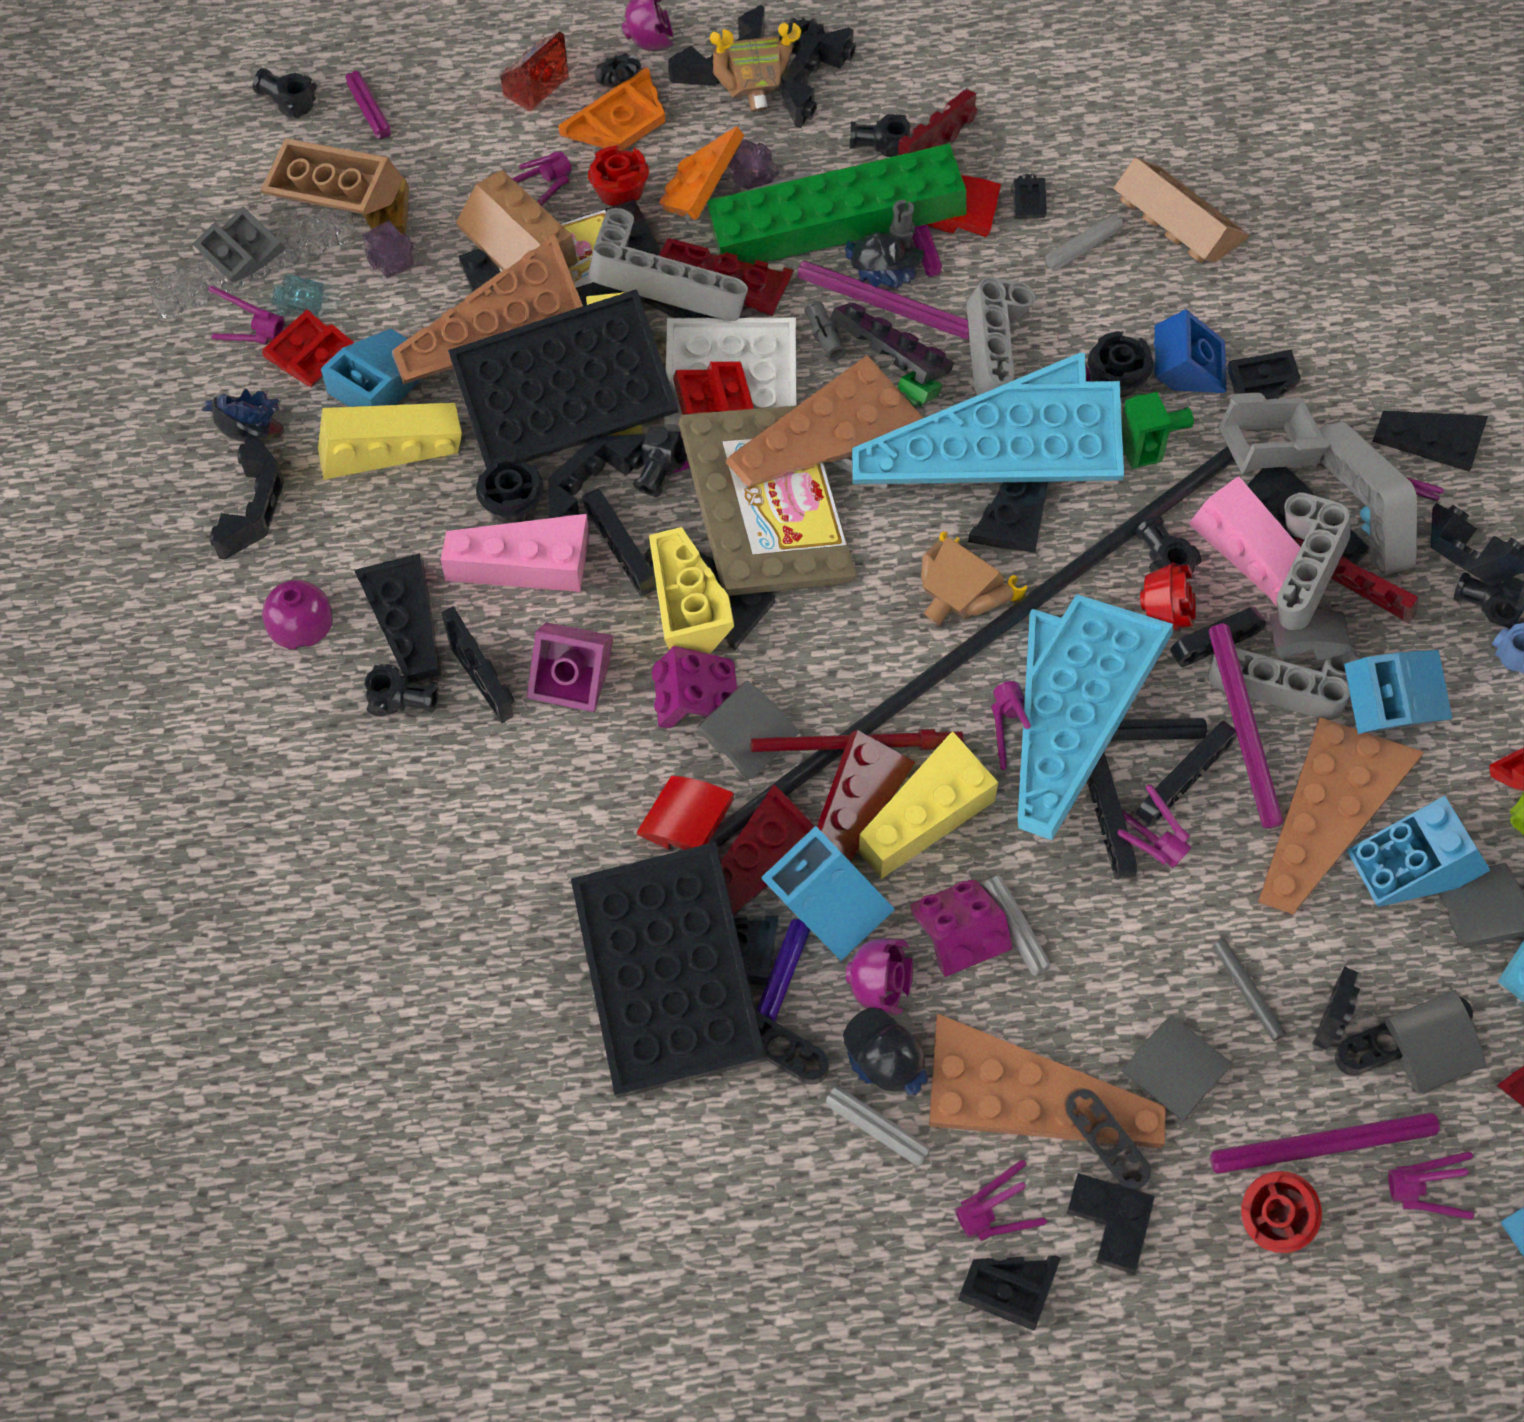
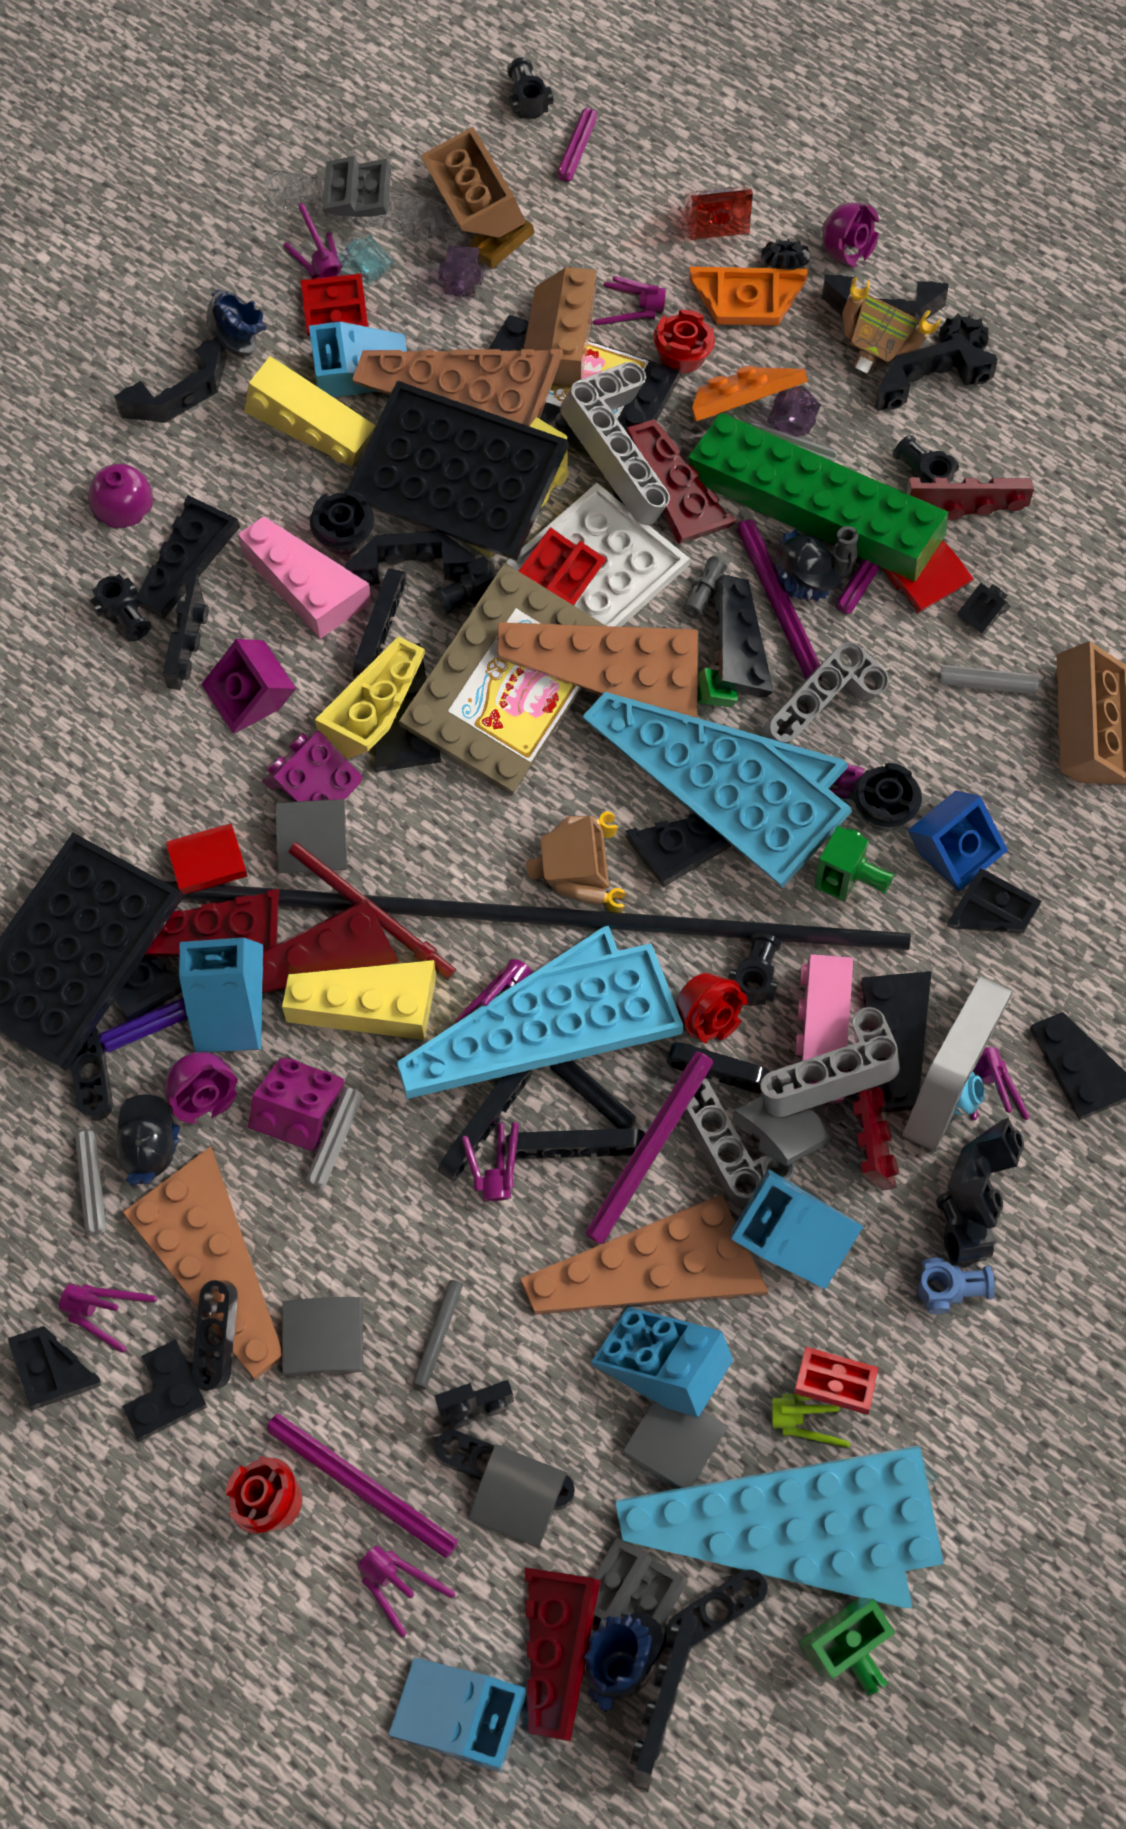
camera: 45 degrees right, 5 degrees up
(1252, 412) = (945, 922): light grey piece -> none

